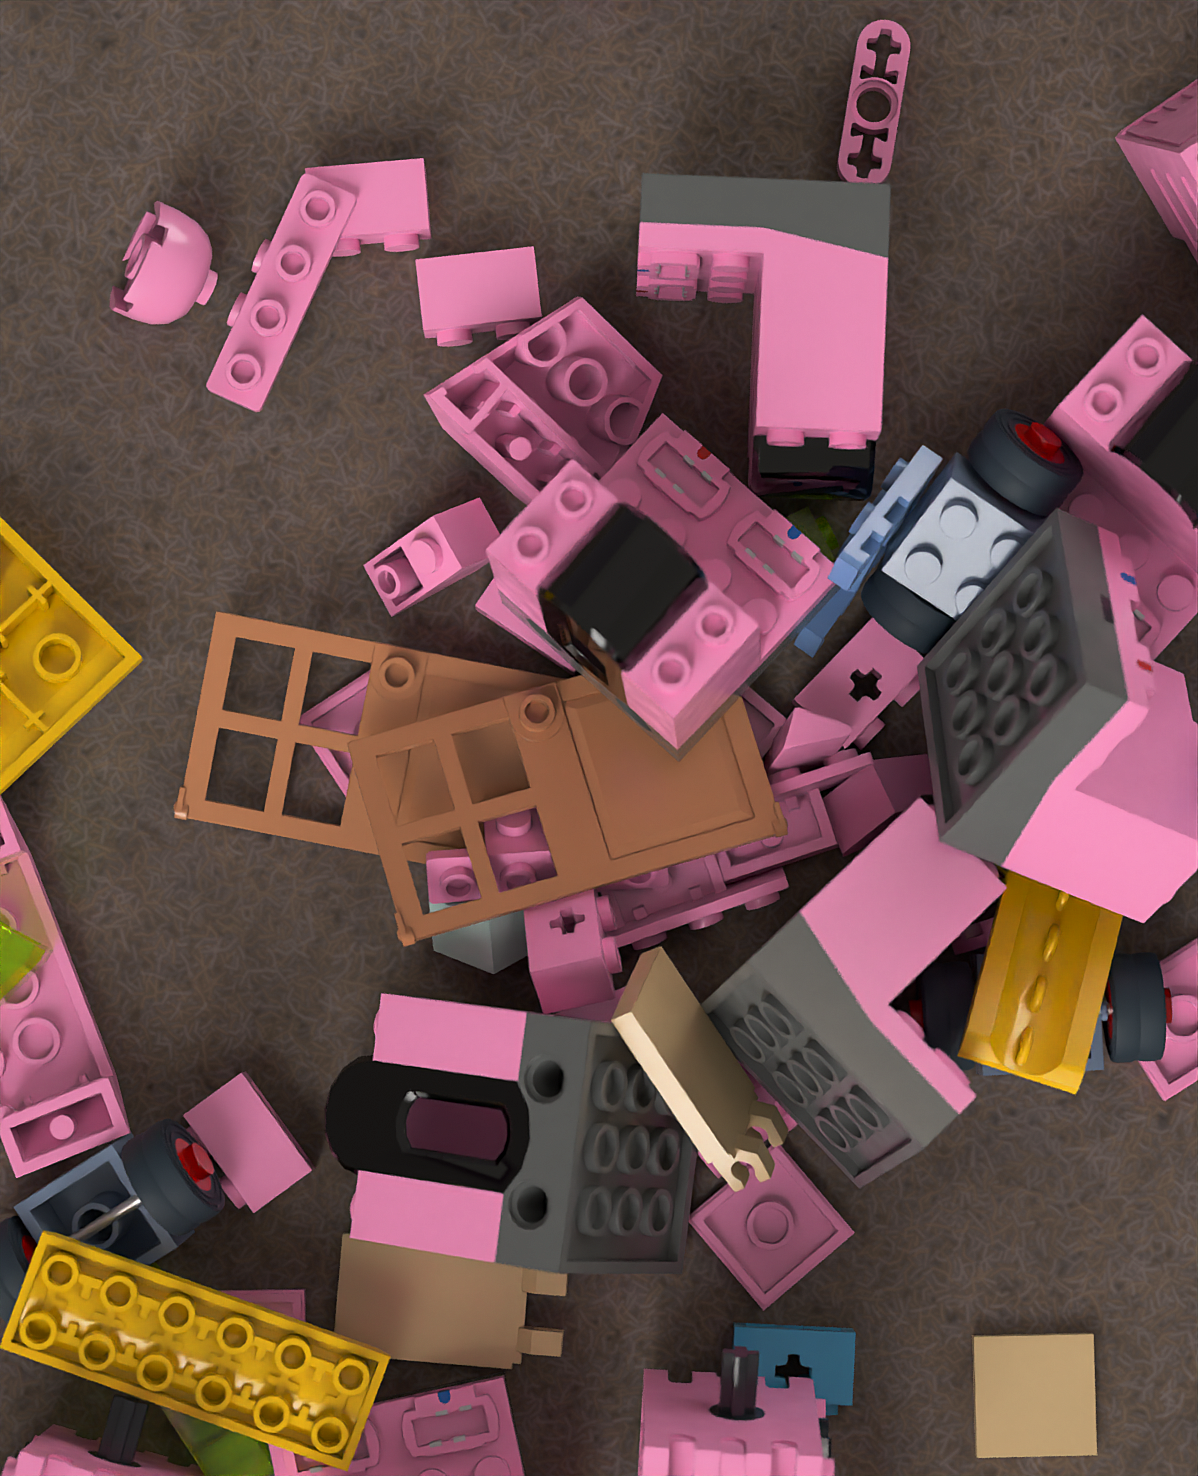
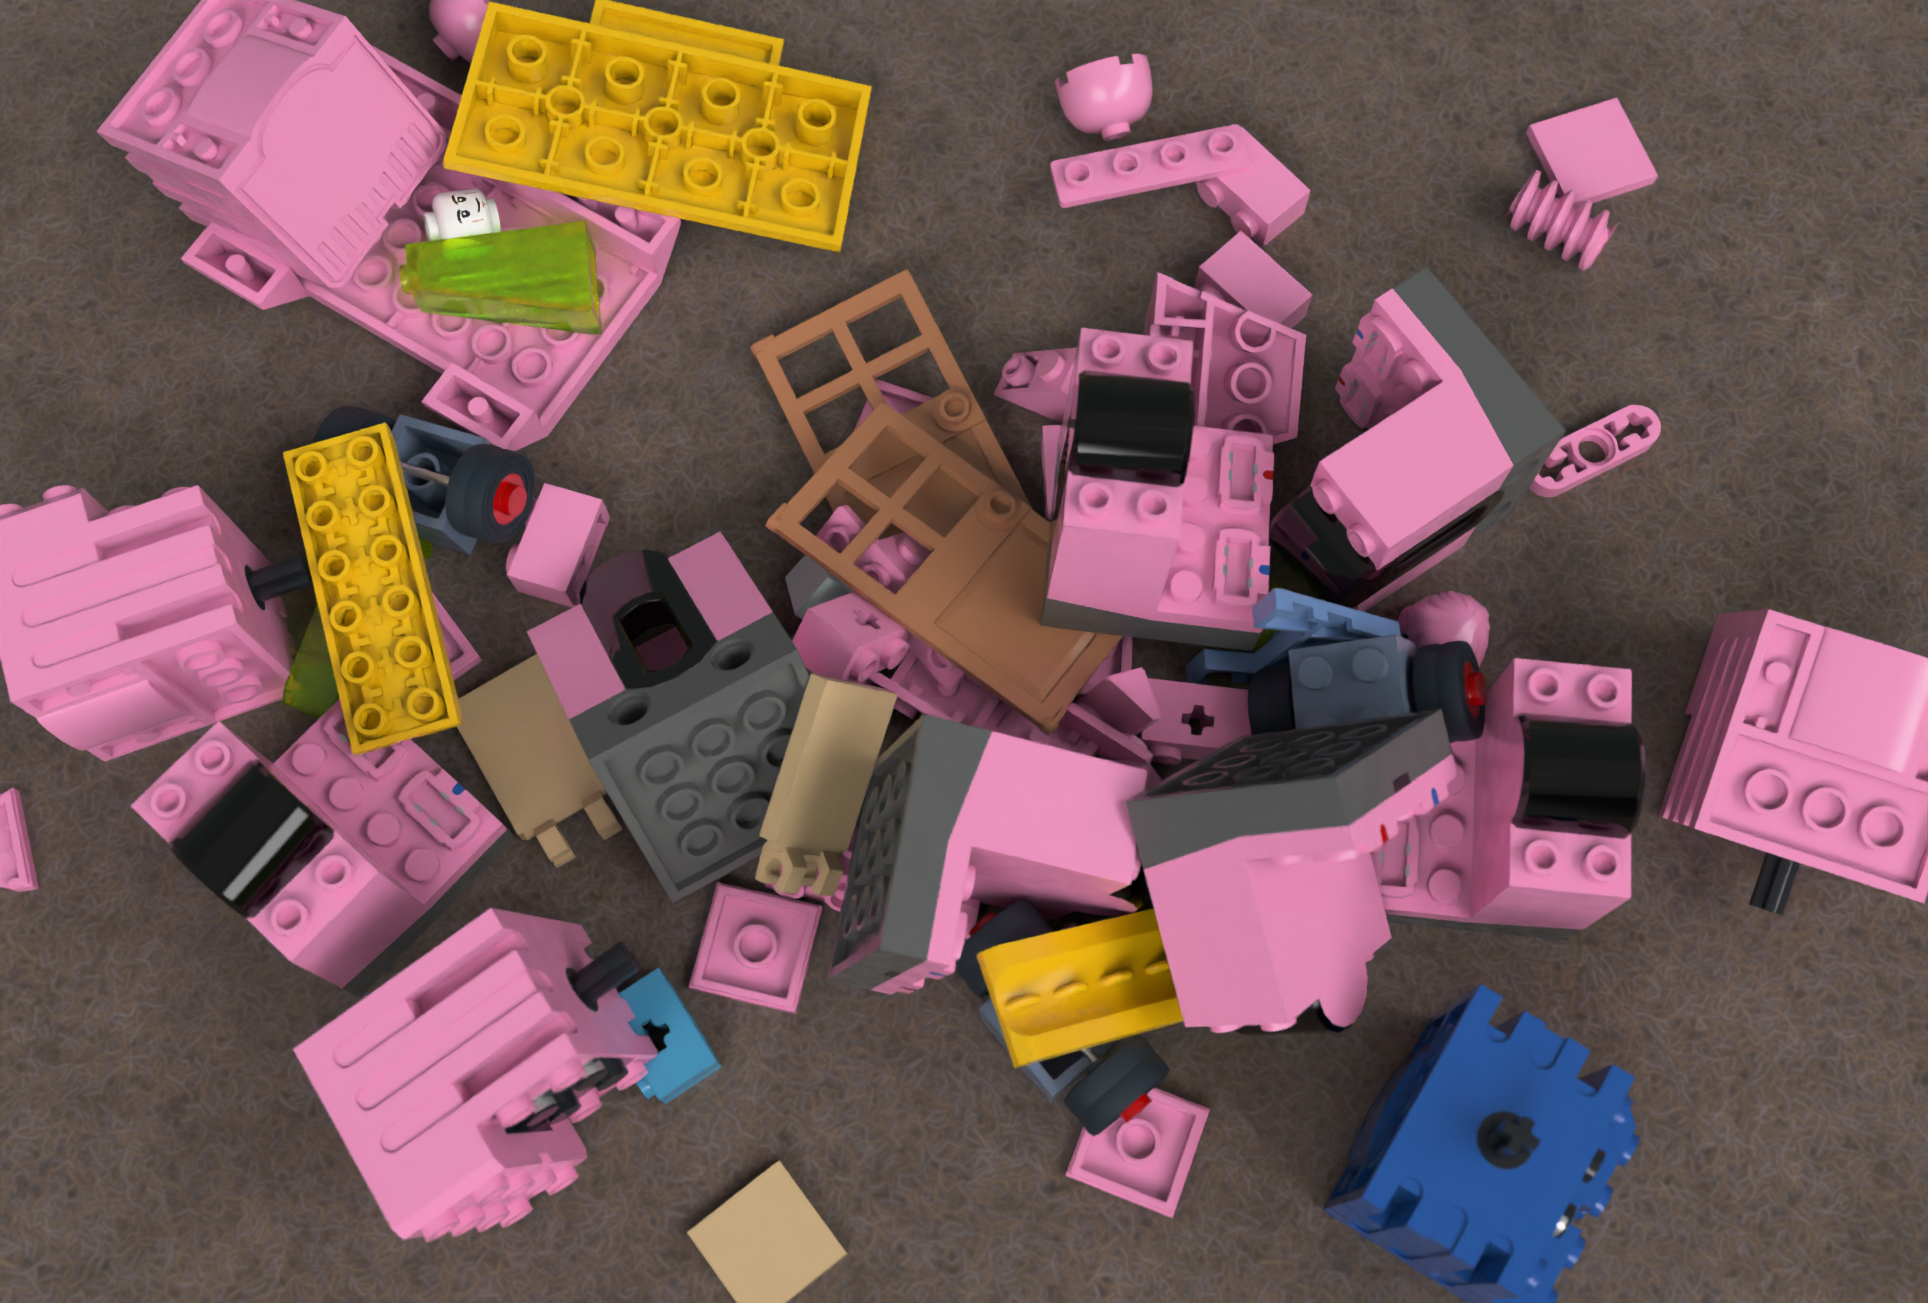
camera: 55 degrees right, 15 degrees down
(947, 394) = (1447, 619): none -> bright pink hair

